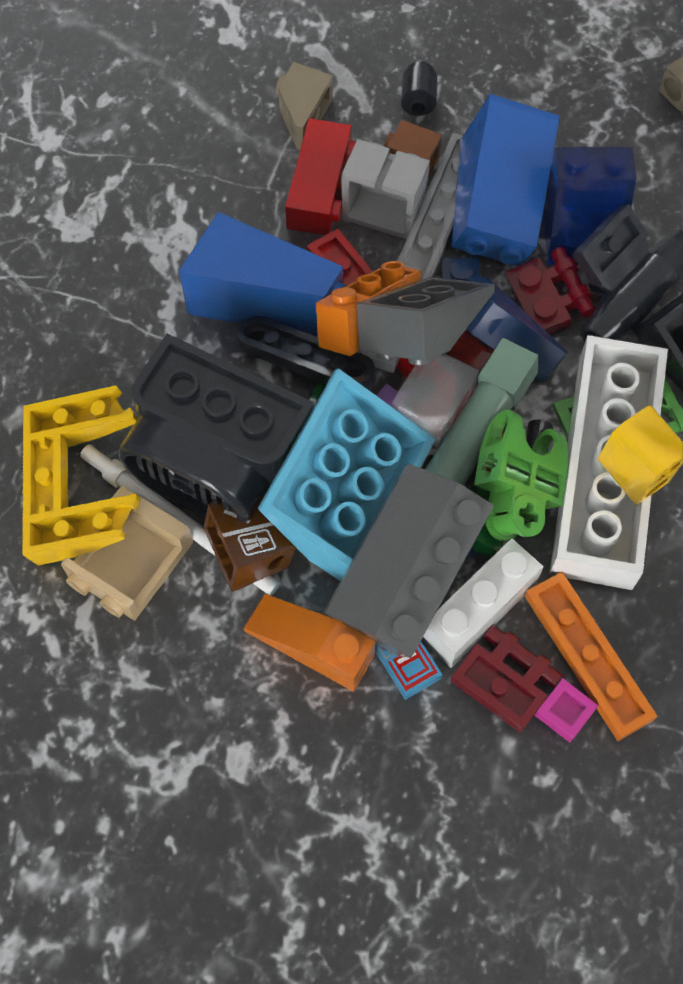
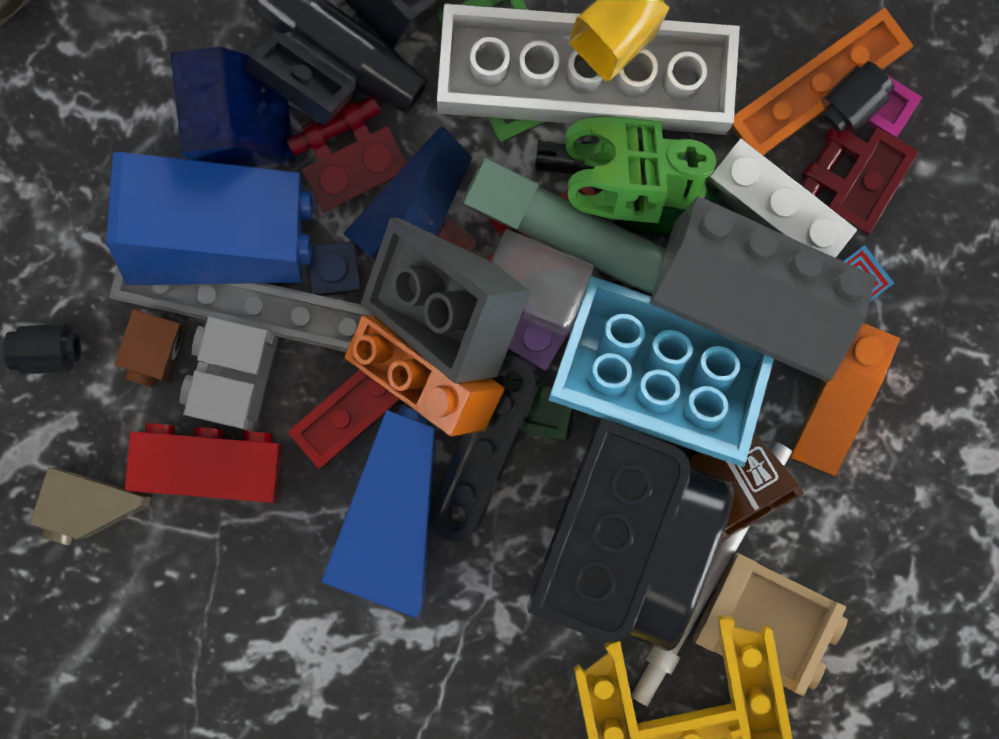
camera: 95 degrees left, 20 degrees up
(574, 671) = (856, 98): none -> black brick

